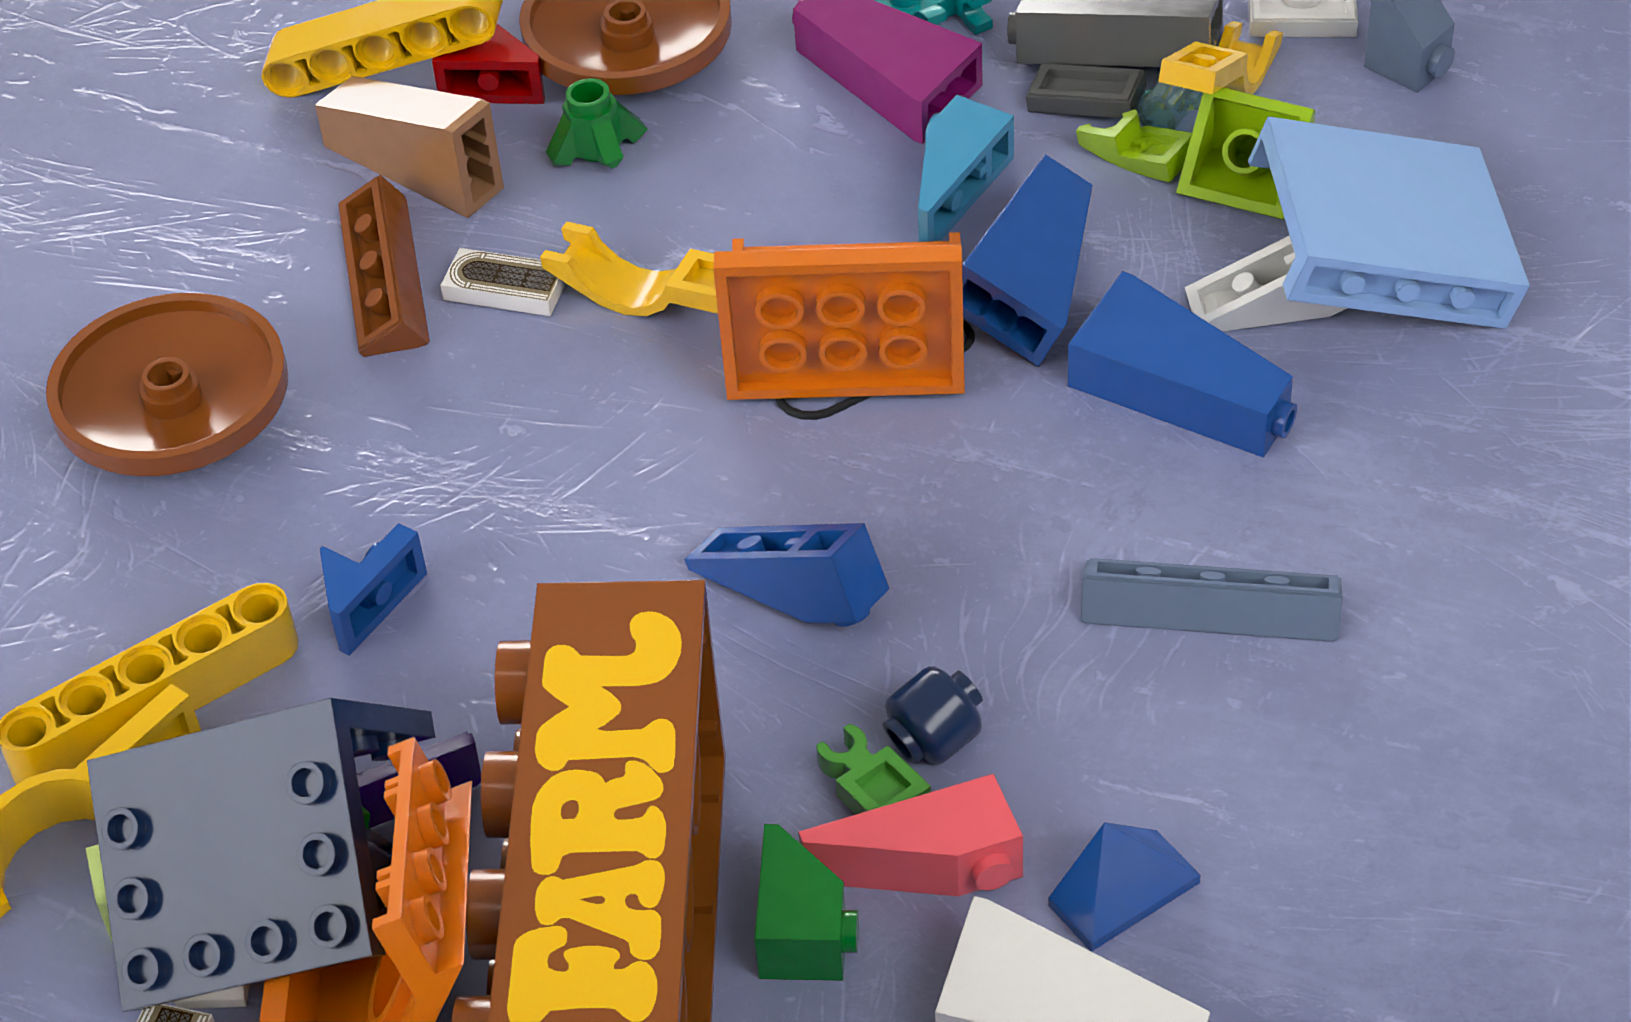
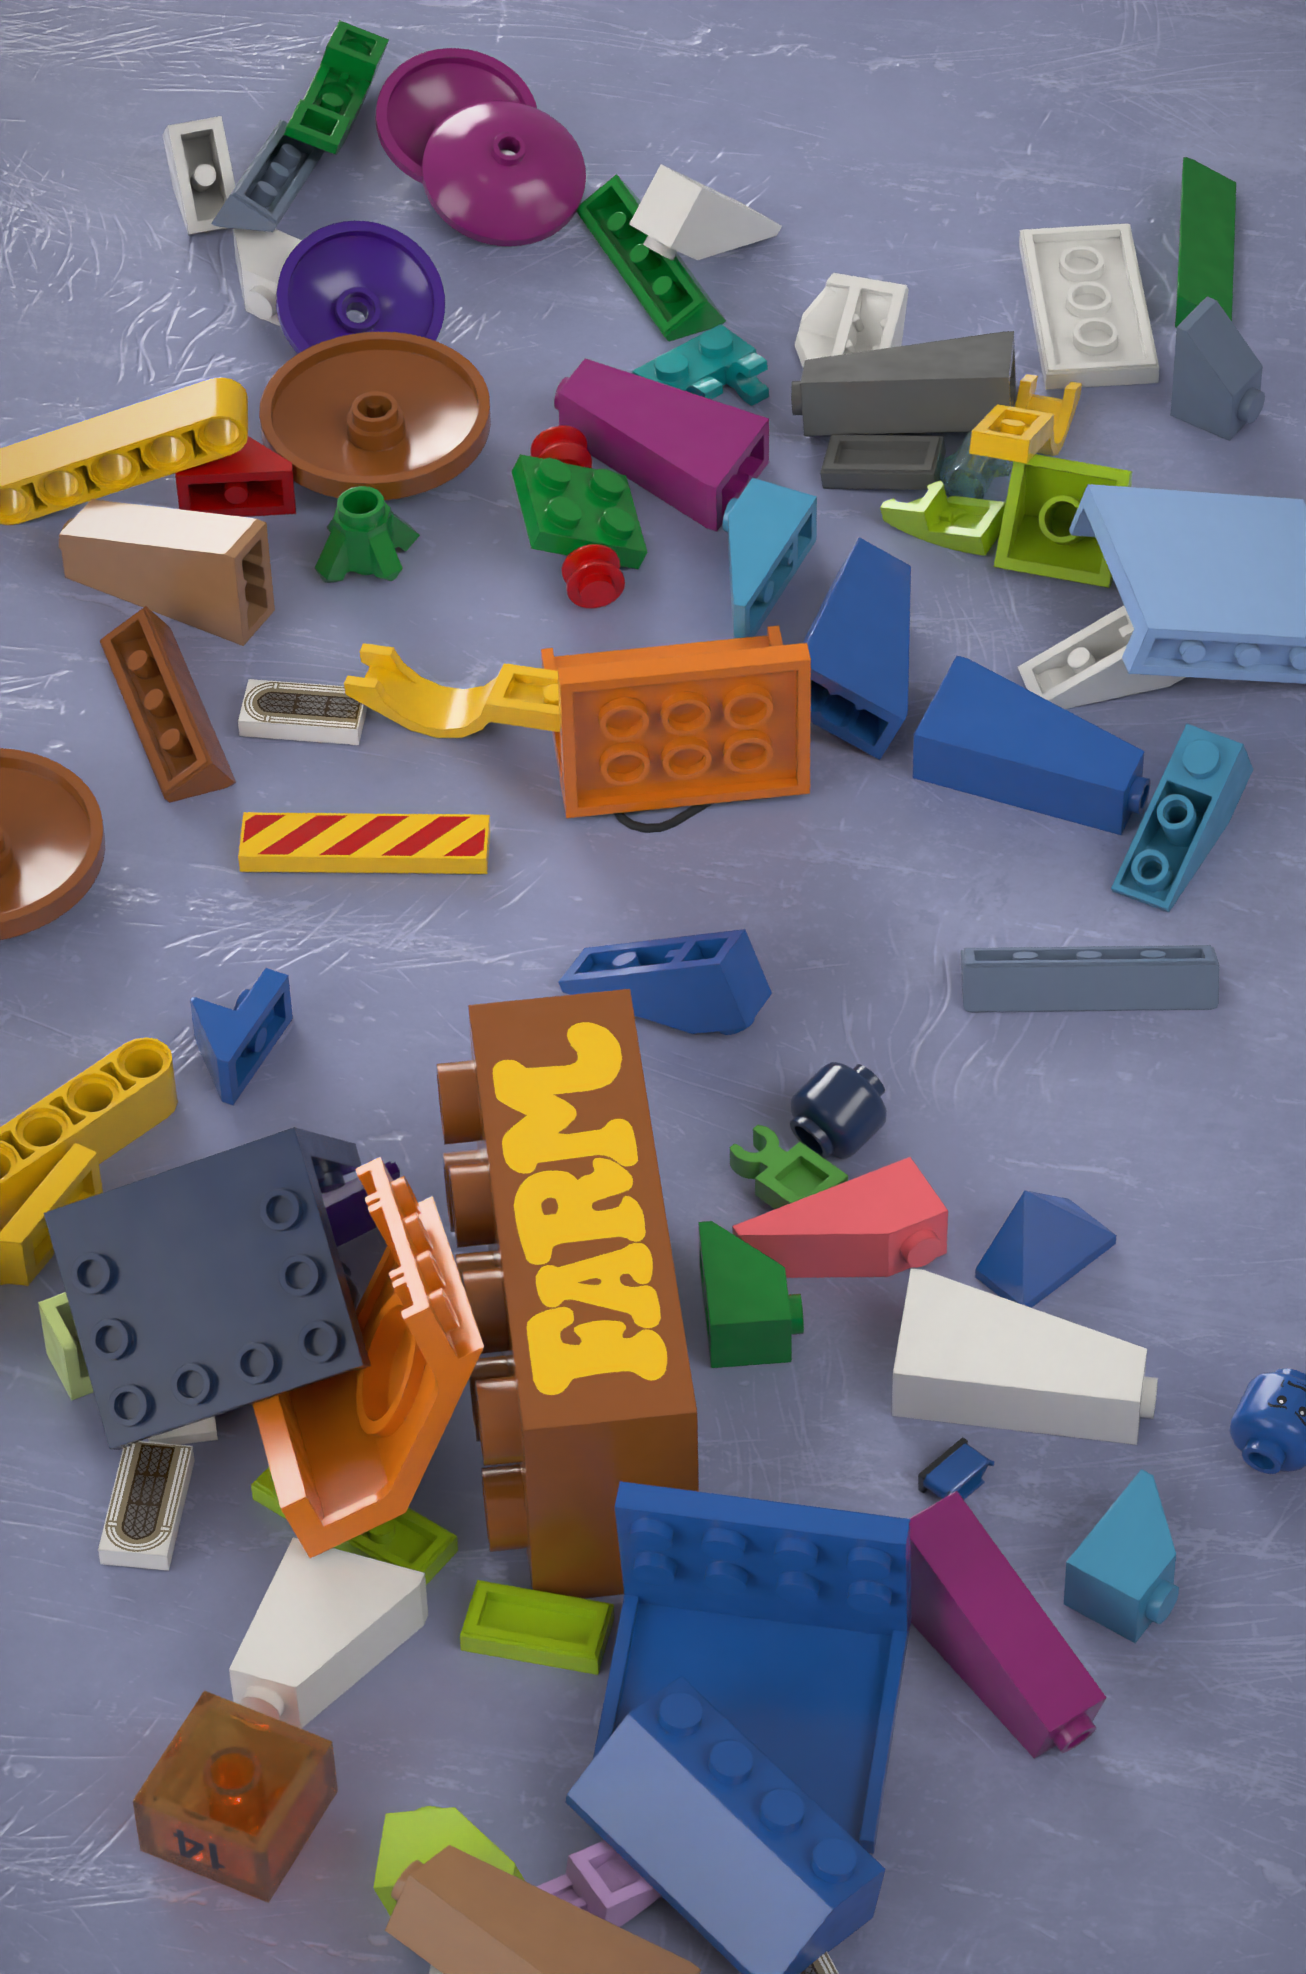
camera: 10 degrees left, 0 degrees up
(532, 409) = (364, 843): none -> yellow tile
(793, 119) = (579, 515): none -> green plate
(1326, 445) = (1184, 817): none -> dark azure slope

